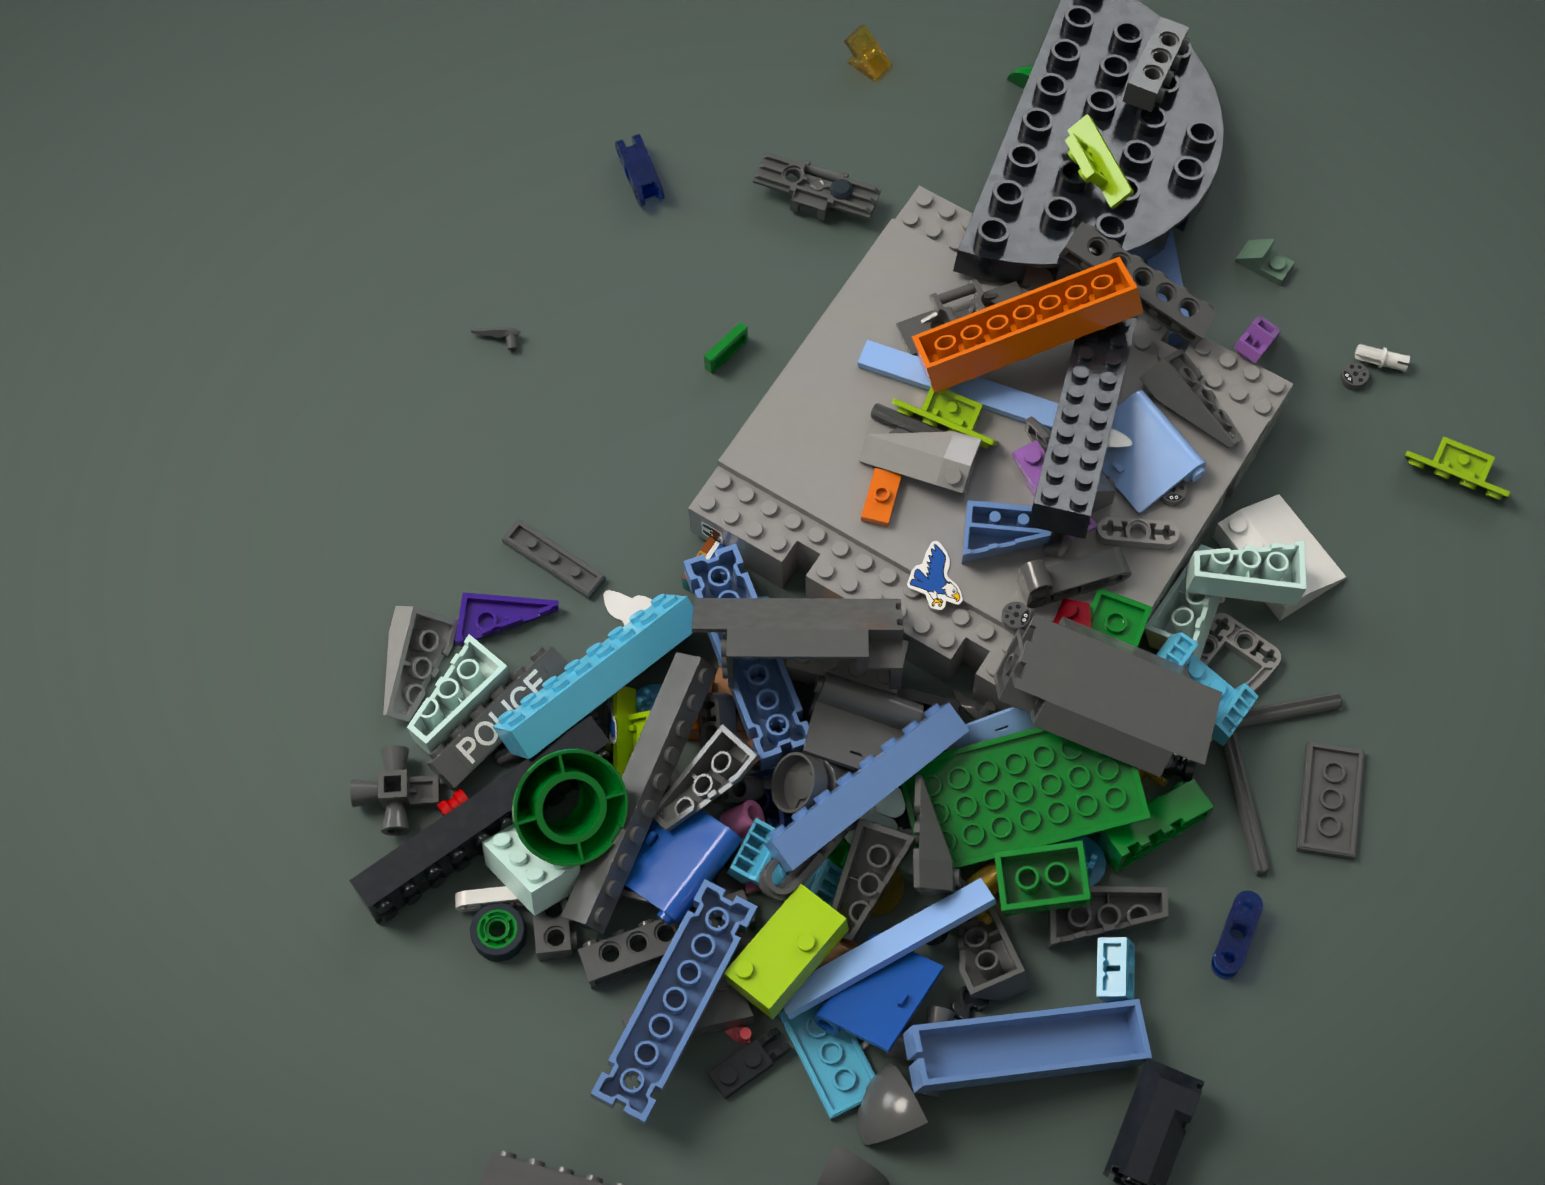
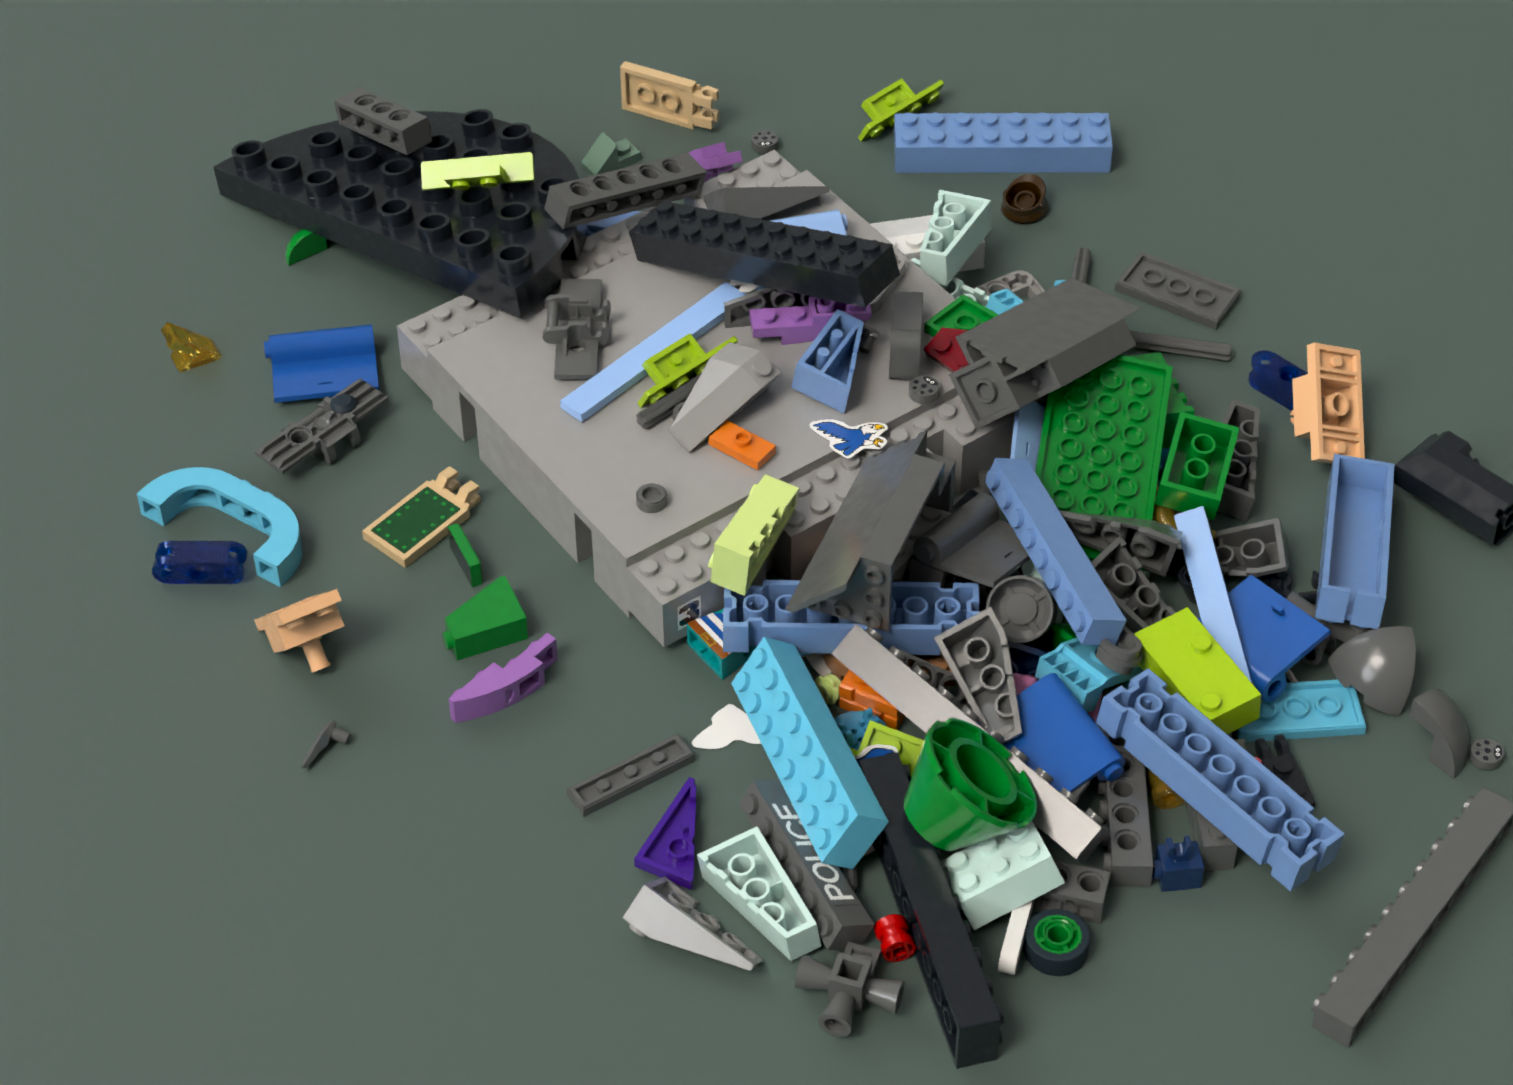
camera: 70 degrees left, 20 degrees down
(591, 264) = (303, 626): none -> light nougat brick
(597, 429) = (502, 687): none -> medium lavender slope
(608, 1002) = (1178, 865): none -> dark blue brick
(663, 392) = (486, 621): none -> green slope
(688, 217) = (214, 488): none -> medium azure arch
(758, 301) = (422, 517): none -> tile
(776, 542) = (752, 534): none -> yellowish green wedge
(789, 452) = (651, 498): none -> dark grey tile
(895, 156) = (321, 361): none -> blue door
(1028, 324) = (635, 261): orange brick -> none
(1115, 969) = (1294, 469): medium azure brick -> none
(1196, 980) = (1330, 403): none -> light nougat brick
(1355, 273) = (667, 97): none -> tan tile
(1381, 357) = (758, 117): white axle -> none
(1383, 625) = (1025, 199): none -> dark brown piece
(1454, 578) = (1002, 142): none -> medium blue brick

